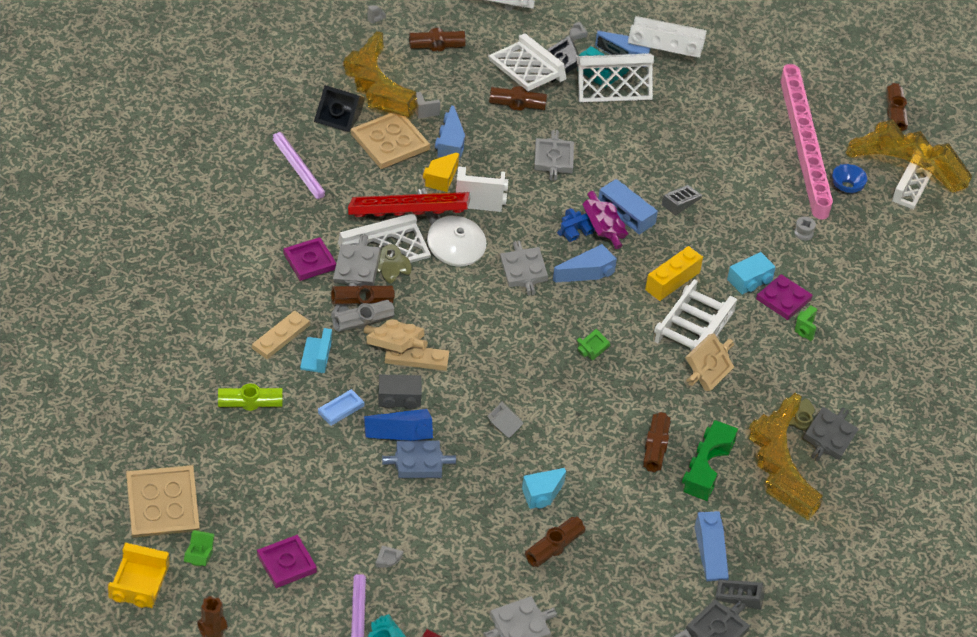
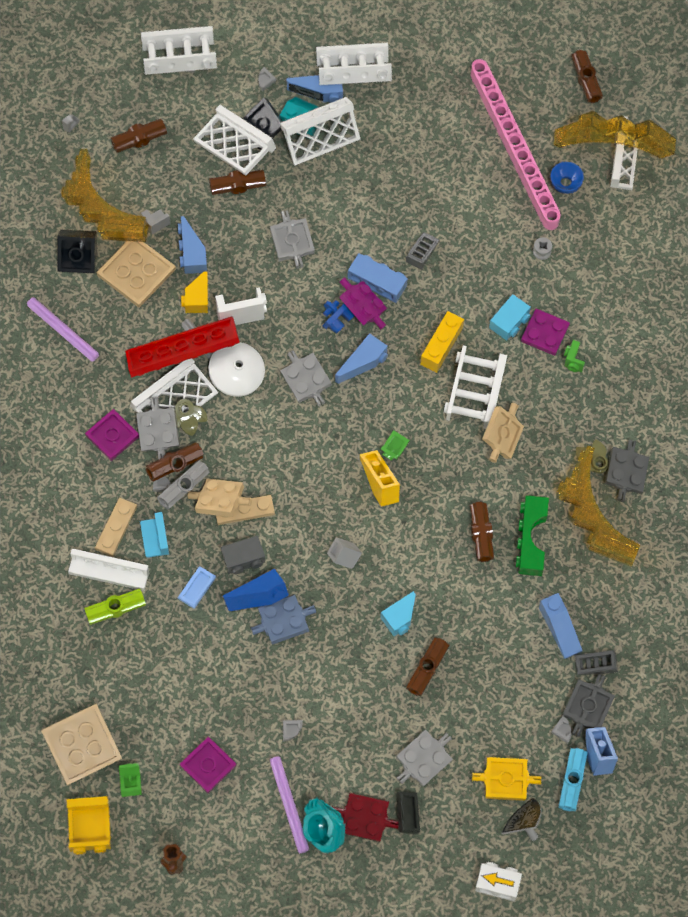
camera: 15 degrees left, 20 degrees up
(258, 367) = (105, 569): none -> white fence
(568, 368) = (381, 479): none -> yellow slope

